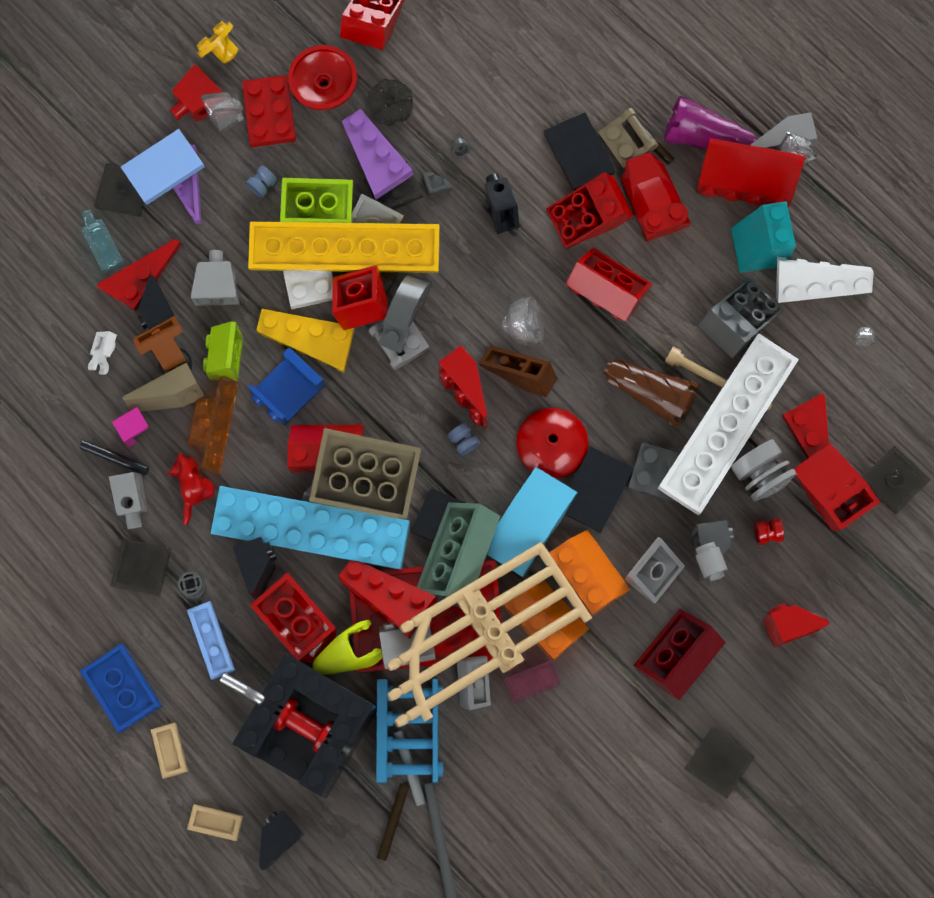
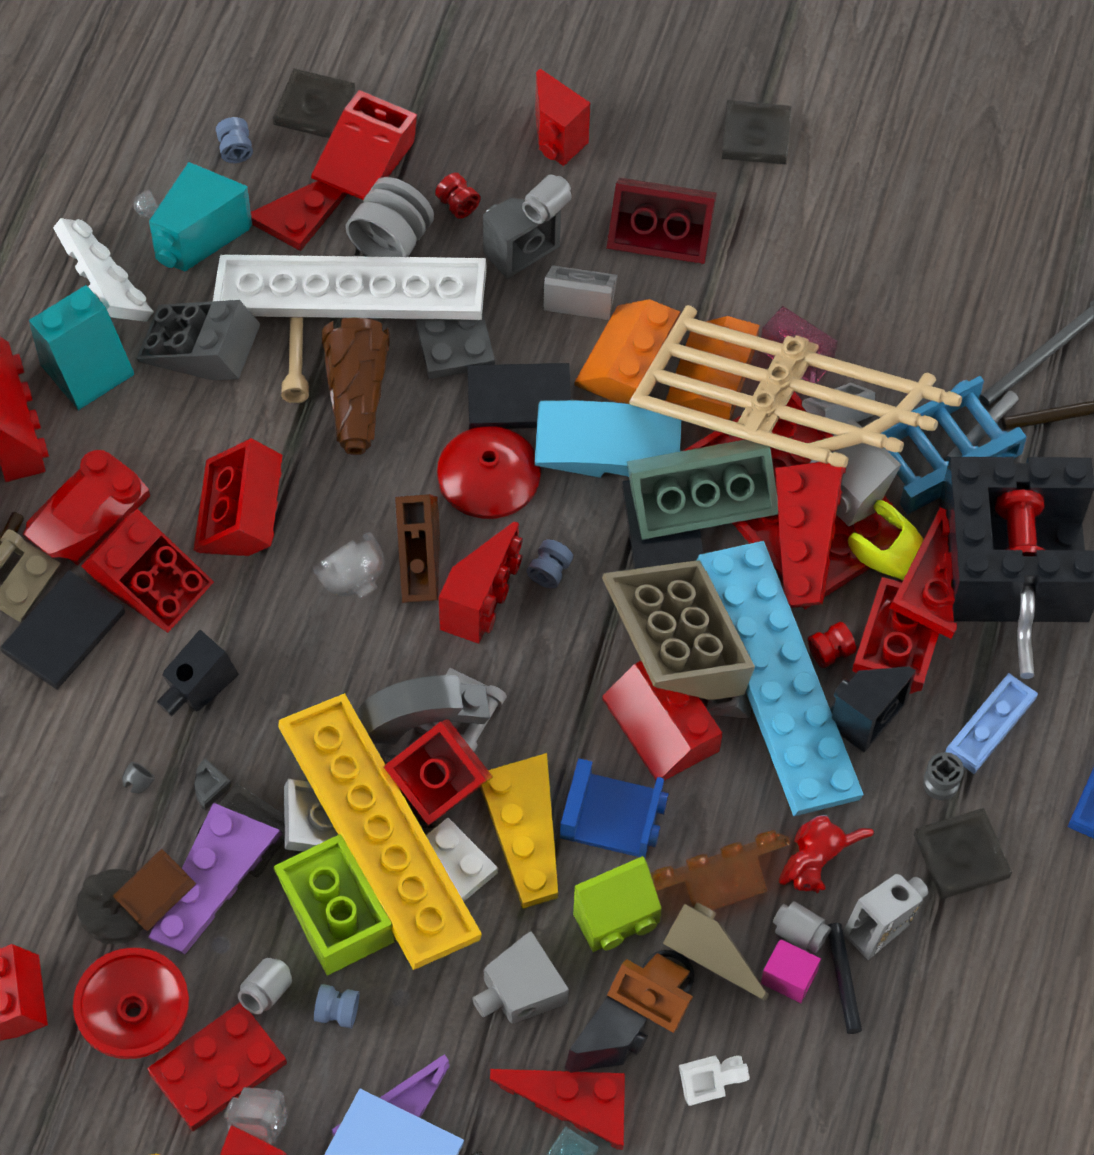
camera: 125 degrees left, 15 degrees down
(153, 448) = (801, 927): none -> light grey brick
(294, 150) = (265, 985): none -> light grey brick
(307, 645) = (927, 587): none -> red wing
(313, 570) = (832, 644): none -> red wheel
(381, 118) = (154, 889): none -> reddish brown piece
(830, 352) = (198, 217): none -> teal slope
(887, 412) = (234, 140): none -> sand blue wheel

